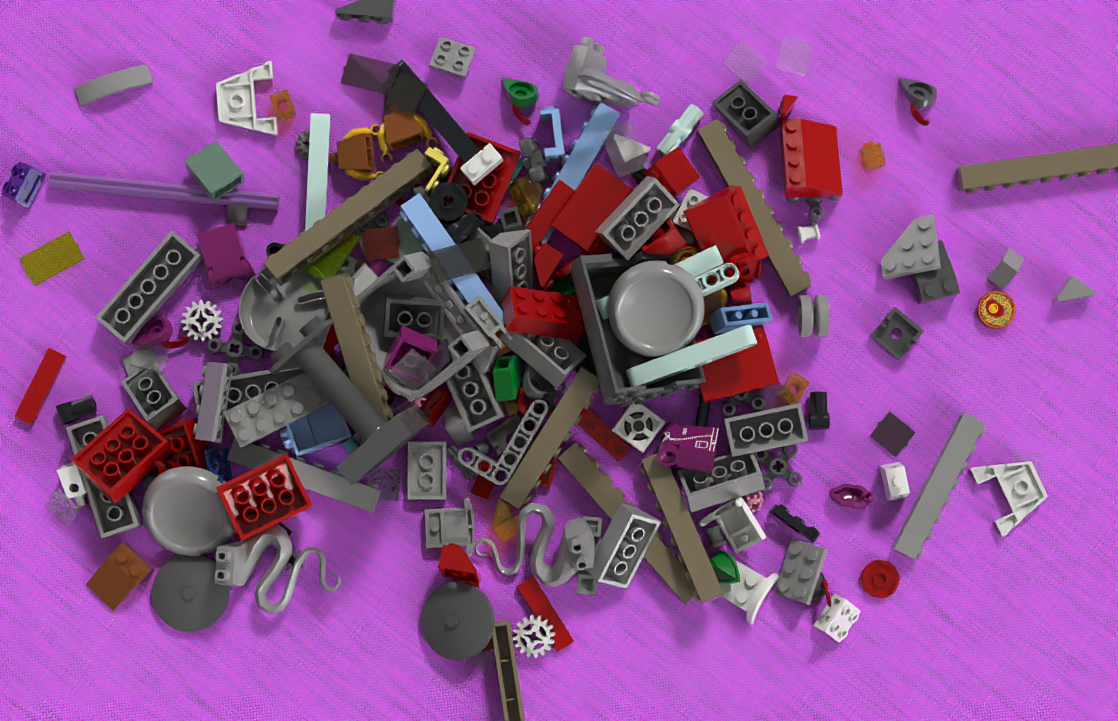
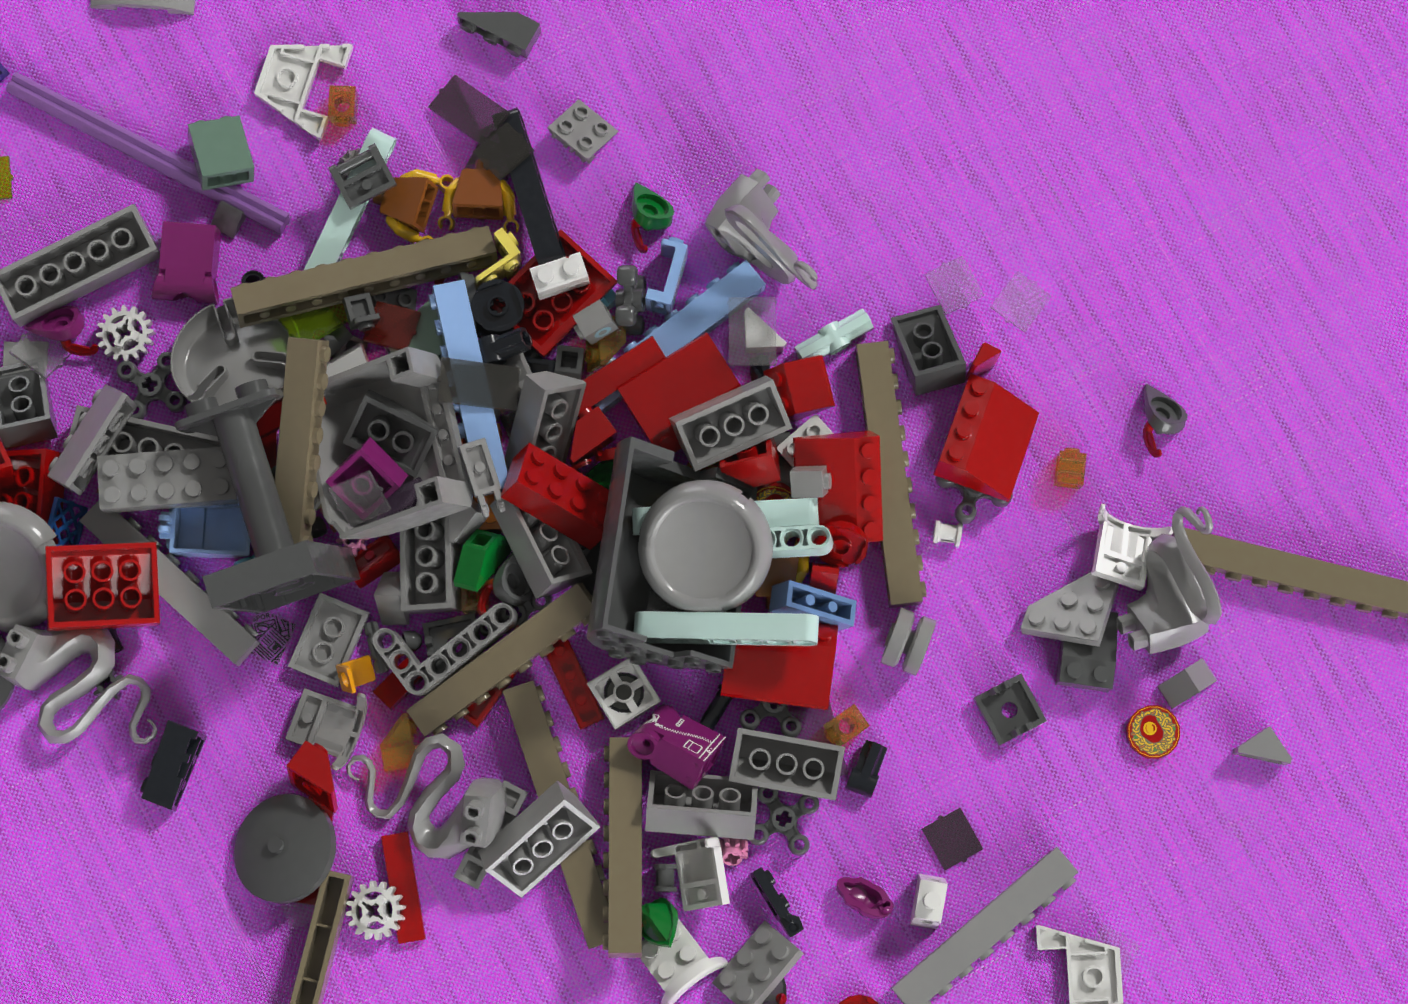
camera: 25 degrees right, 5 degrees down
(323, 154) = (365, 184): none -> dark grey plate
(357, 243) = (360, 312): none -> dark grey bracket
(359, 596) = (172, 765): none -> black wedge
(454, 485) = (355, 673): none -> light orange bracket
(518, 186) = (594, 322): none -> light grey brick
(707, 236) = (810, 481): none -> light grey brick
(930, 196) = (1123, 550): none -> white piece
(978, 218) = (1178, 593): none -> light grey hips

